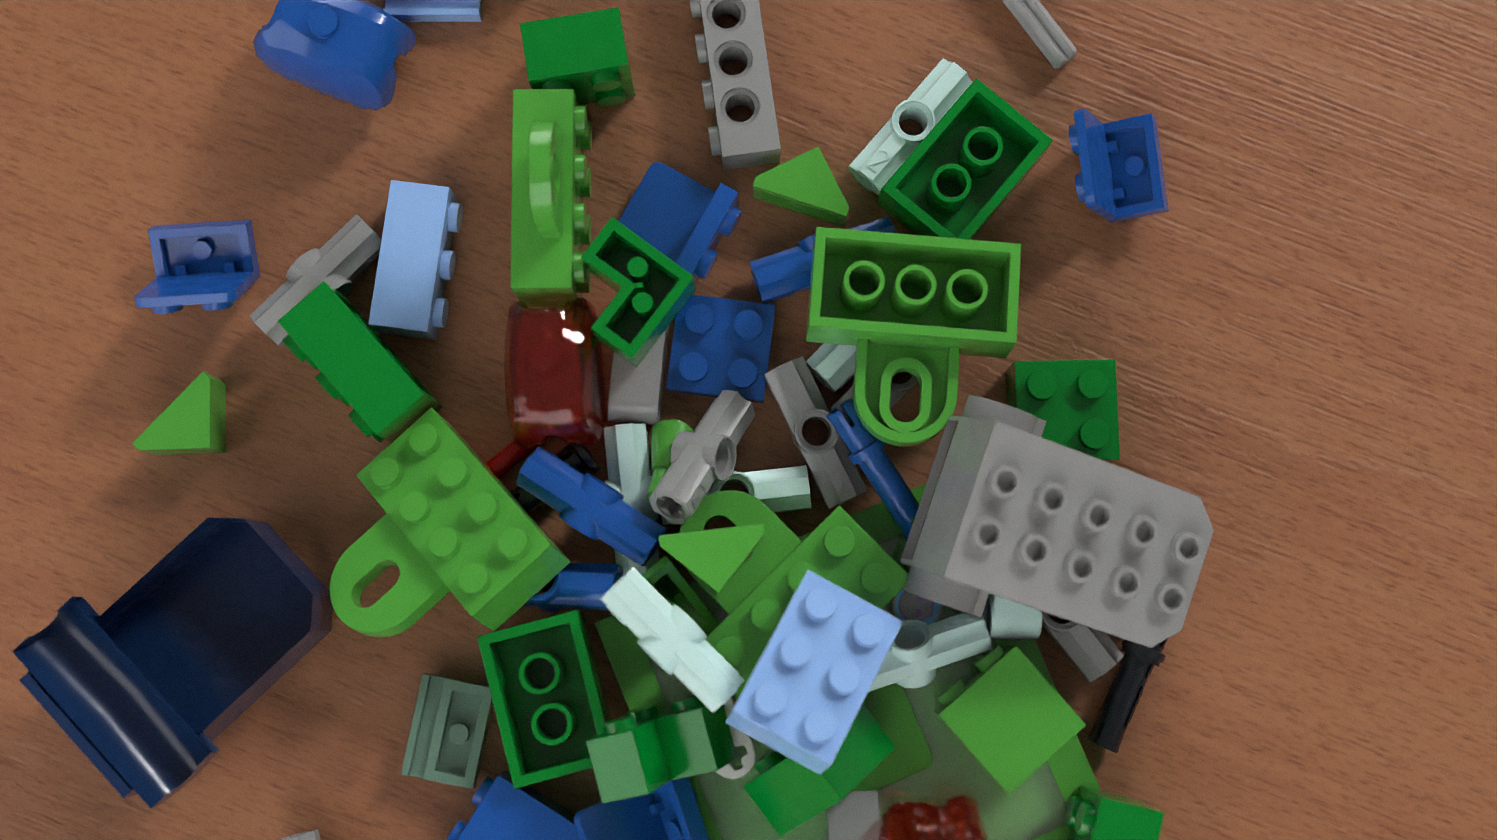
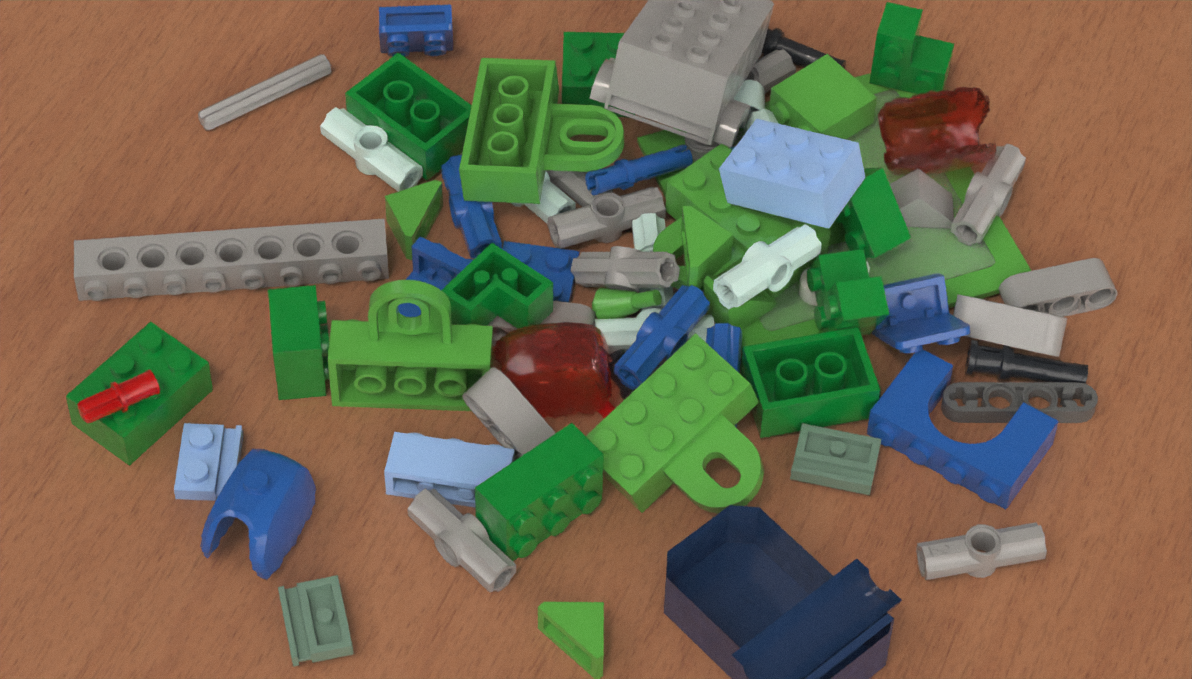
camera: 90 degrees left, 30 degrees down
(200, 265) = (445, 620): blue bracket -> none
(210, 125) = (316, 620): none -> sand green plate
(460, 329) = (506, 413): none -> light grey beam

